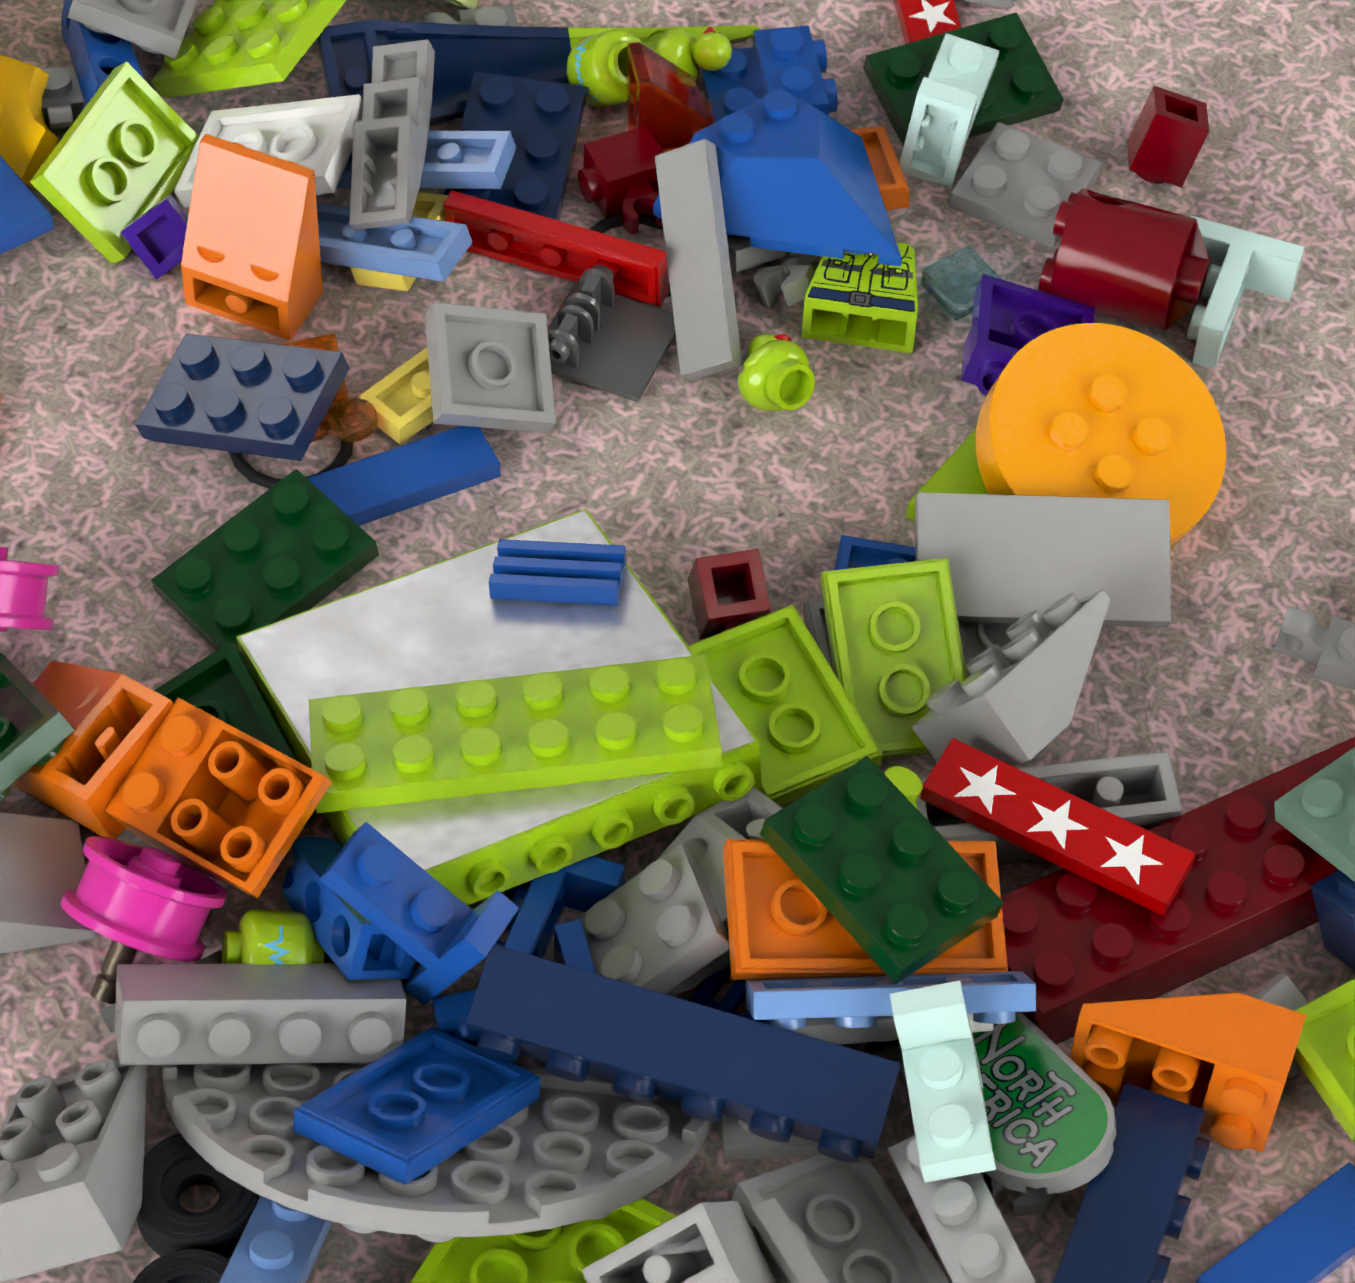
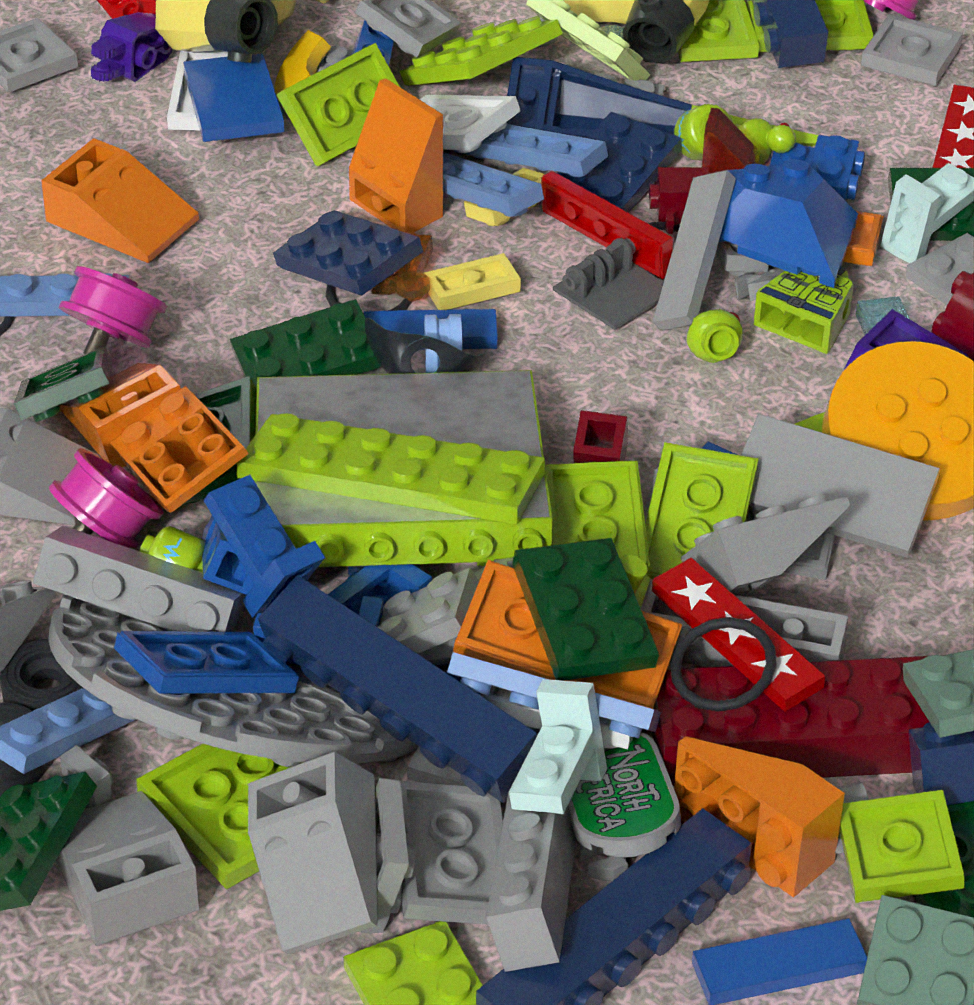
camera: 25 degrees right, 10 degrees down
(159, 236) = (341, 150): dark purple tile -> none
(392, 135) = (527, 126): light grey slope -> none
(407, 541) = (396, 349): none -> black piece
(446, 502) = (446, 330): none -> light blue wheel
(489, 368) = (517, 276): light grey plate -> none
(558, 572) = (484, 394): blue tile -> none
(1072, 939) = (729, 704): none -> black piece

